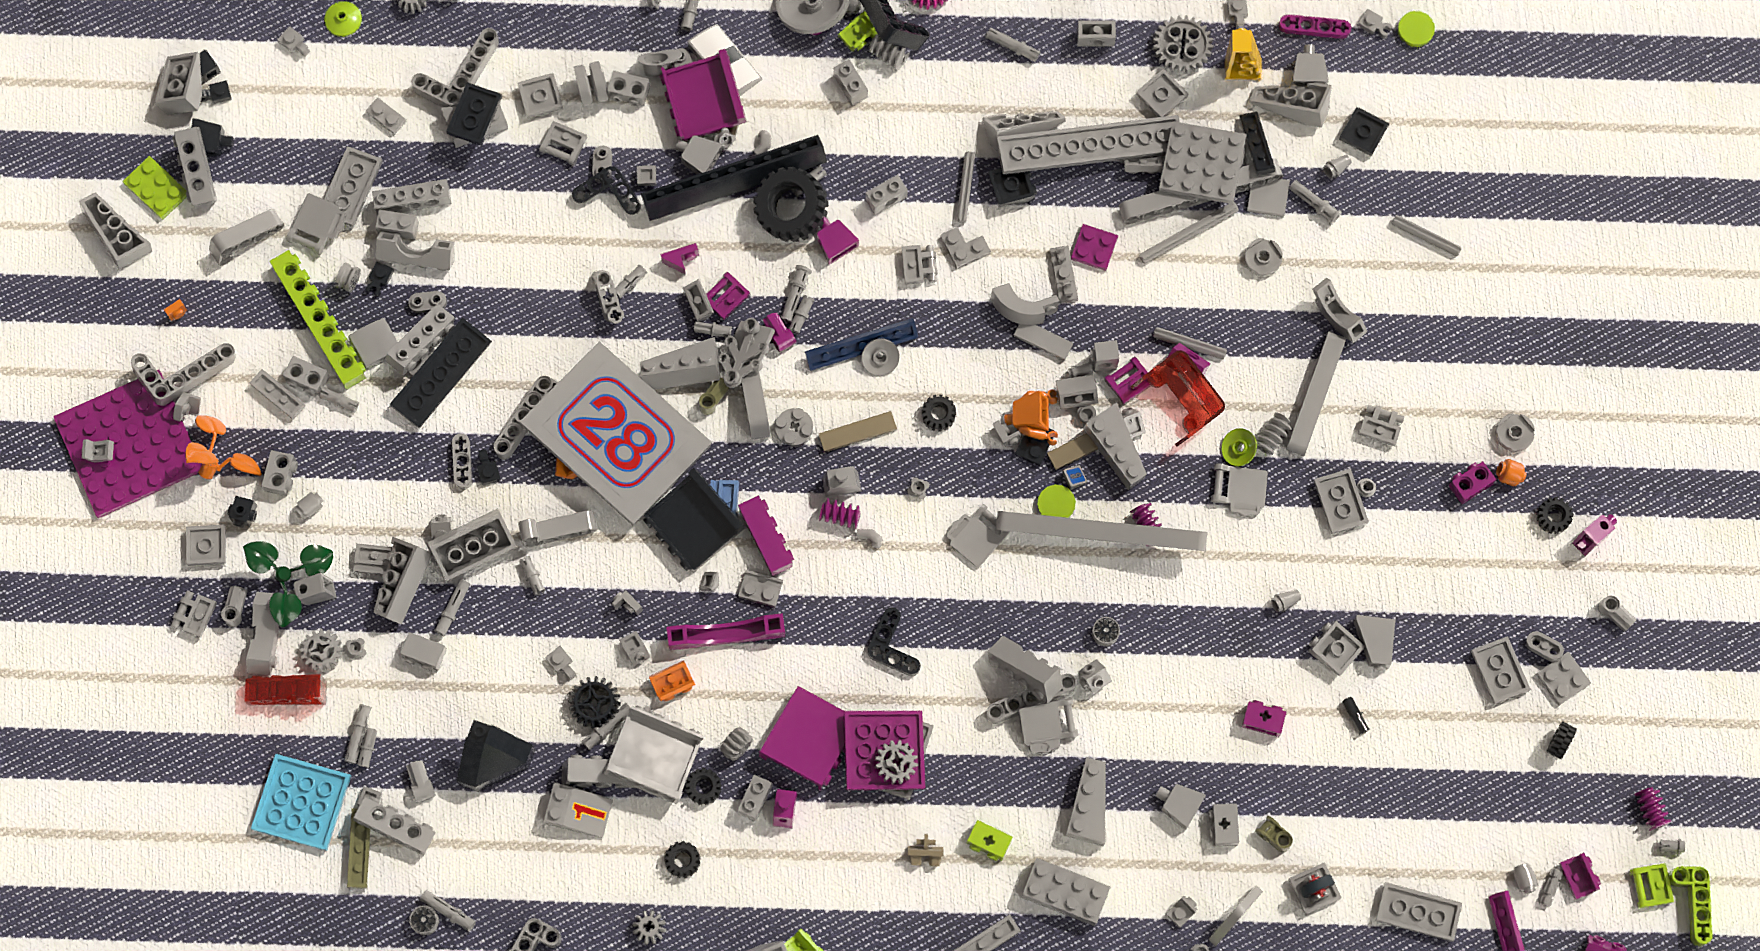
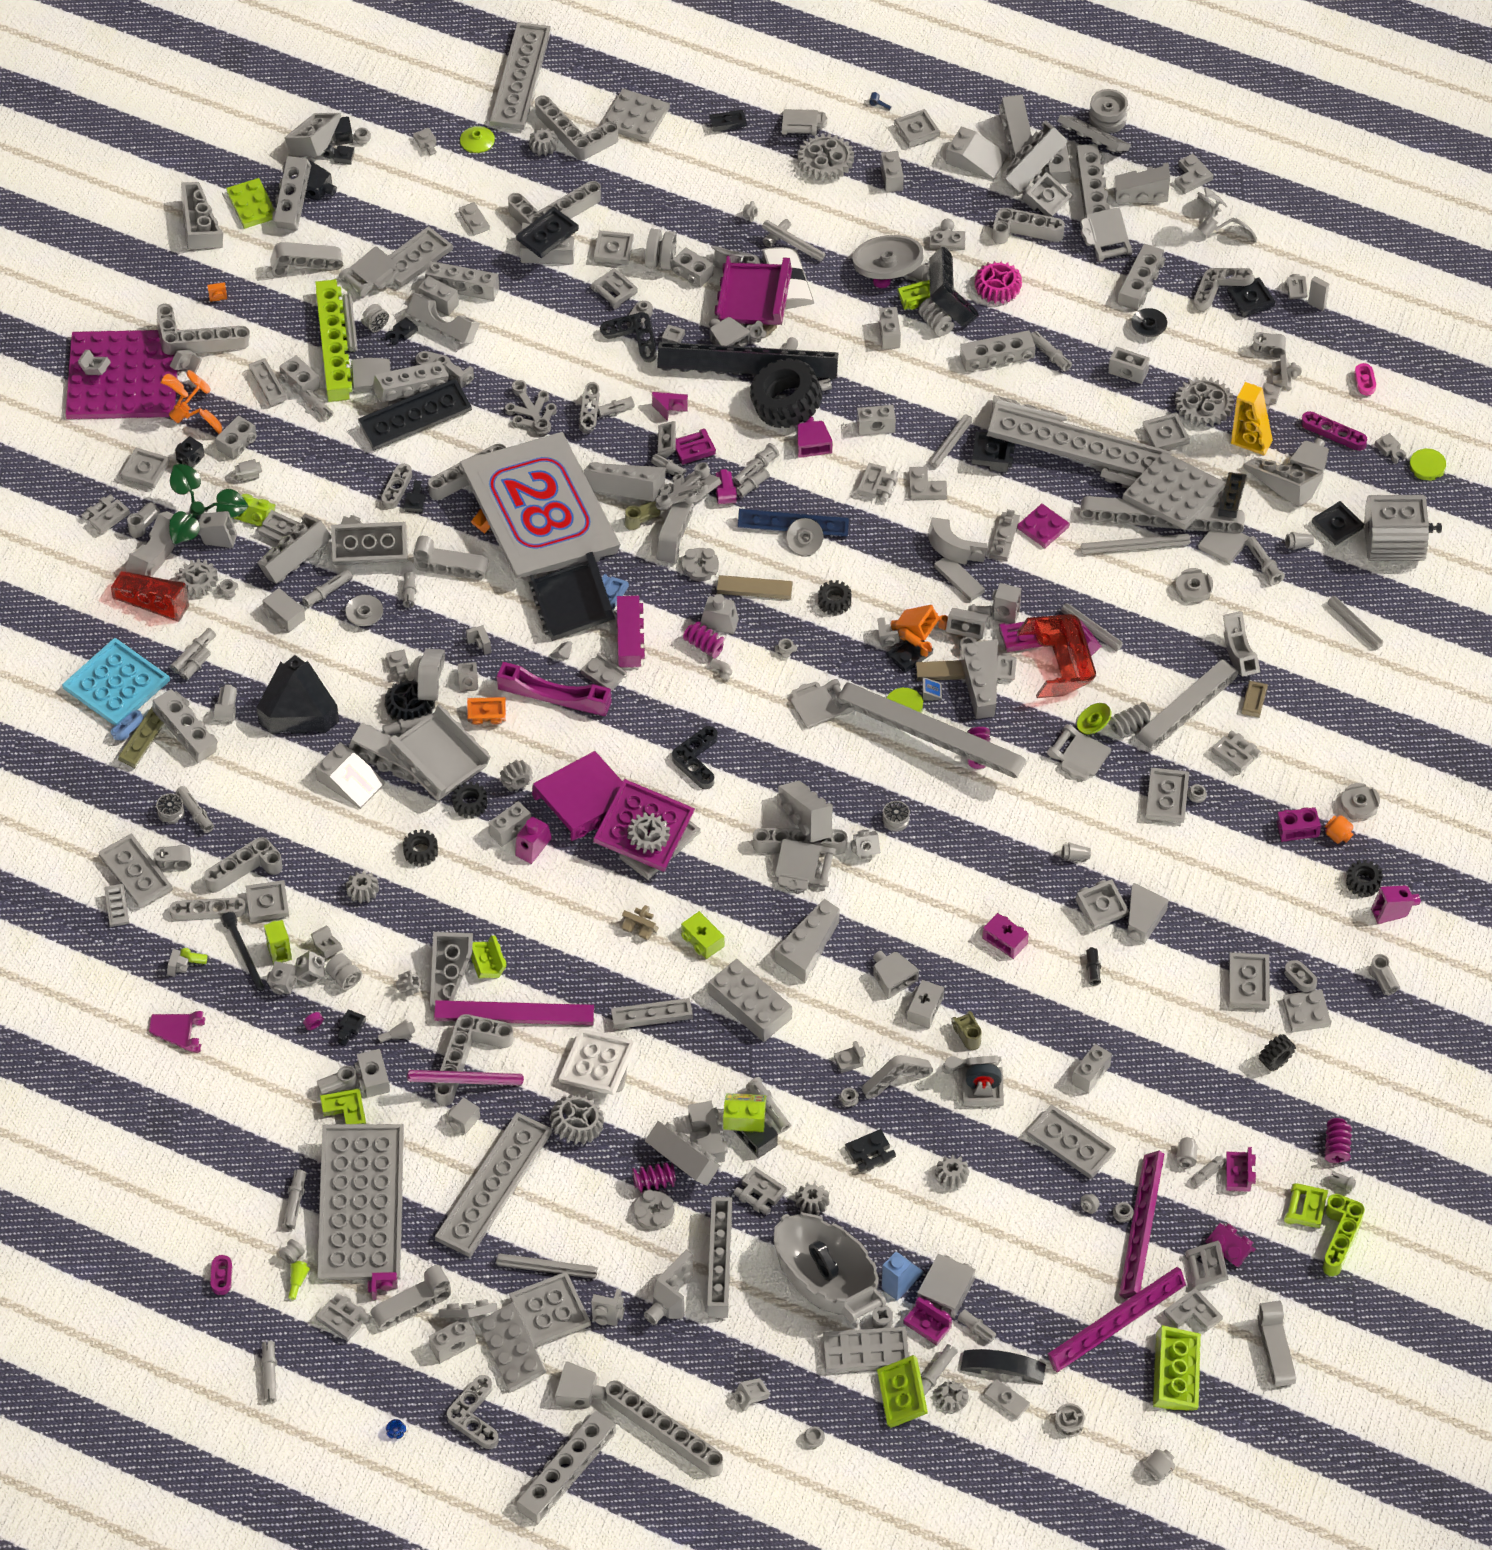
camera: 25 degrees right, 20 degrees down
(225, 58) = (362, 135): none -> light grey plate
(323, 290) = (349, 322): none -> light grey axle
(337, 846) = (127, 725): none -> medium blue plate
(341, 544) = (257, 510): none -> lime bracket
(460, 310) = (463, 377): none -> light grey bracket
(497, 610) = (364, 610): none -> light grey dish
(551, 319) = (540, 425): none -> light grey plant
(602, 667) = (429, 674): none -> light grey beam
(712, 17) = (793, 240): none -> light grey axle
(983, 46) = (997, 351): none -> light grey brick
(1304, 873) = (953, 1063): none -> light grey piece
(1371, 359) = (1254, 699): none -> dark tan tile
(1404, 828) = (1091, 1068): none -> light grey brick
(1427, 121) = (1397, 527): none -> light grey piece

